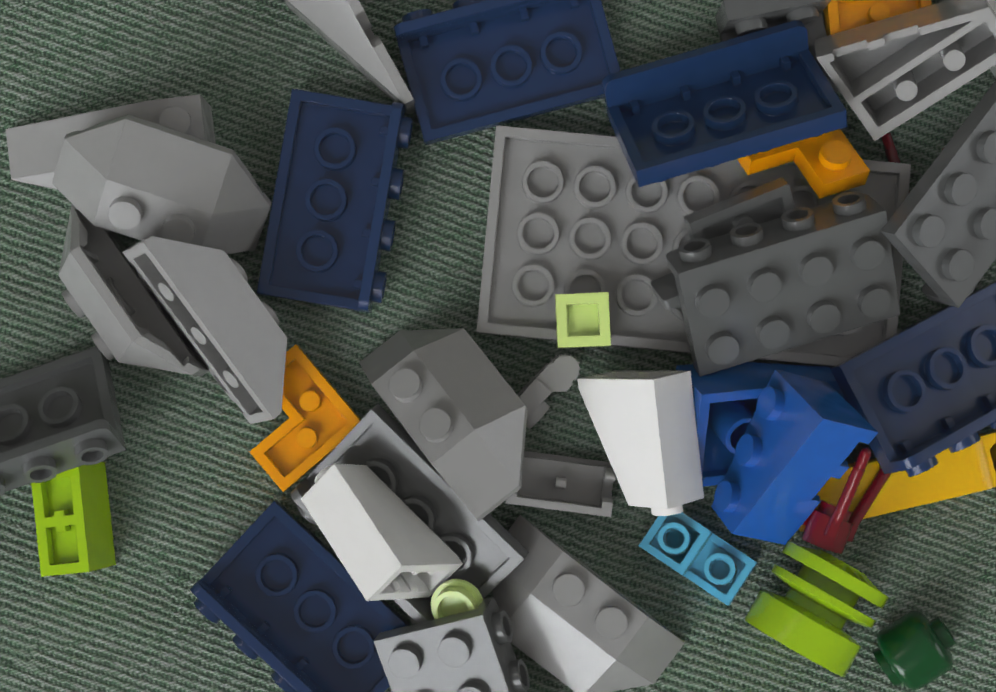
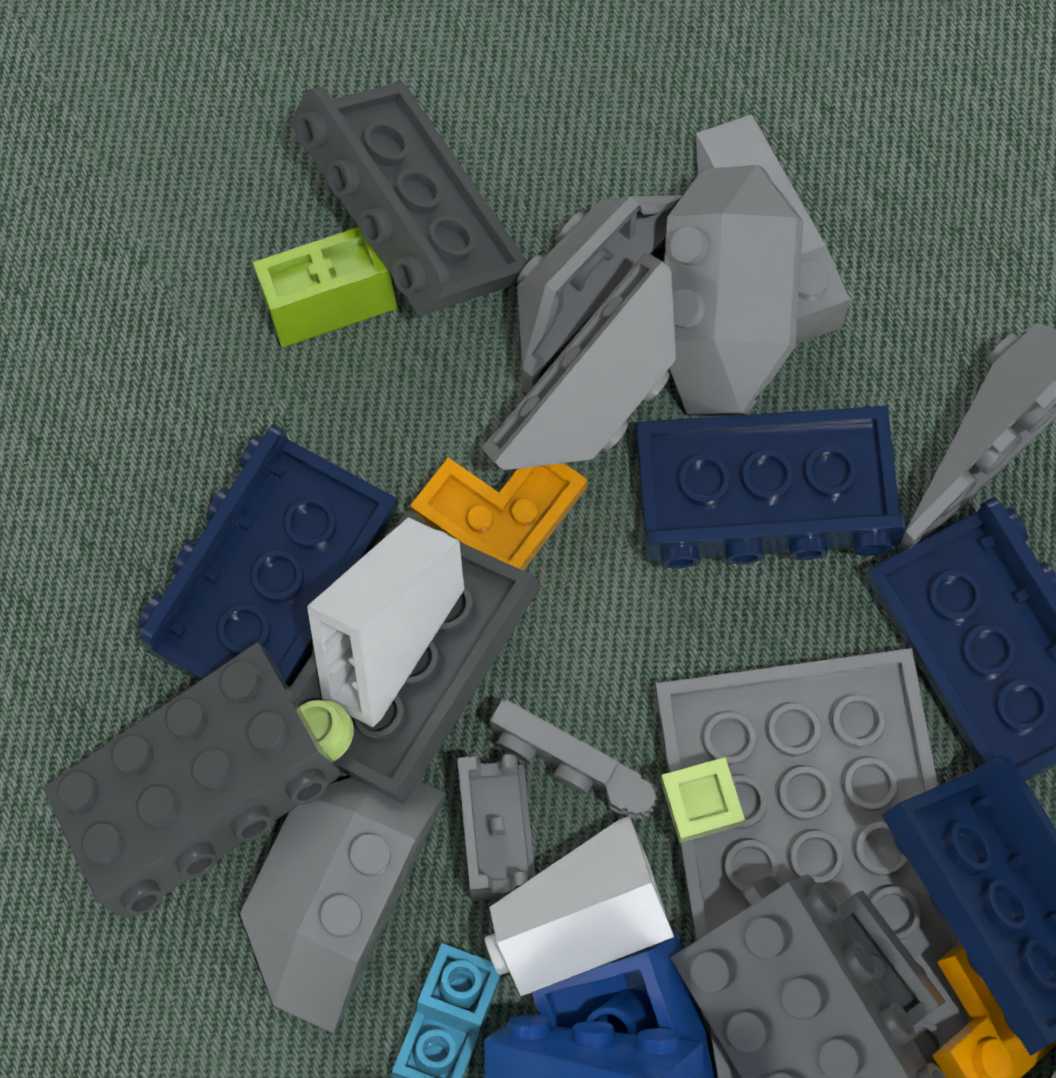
camera: 75 degrees right, 15 degrees down
(454, 411) = (549, 672): light grey wedge -> none

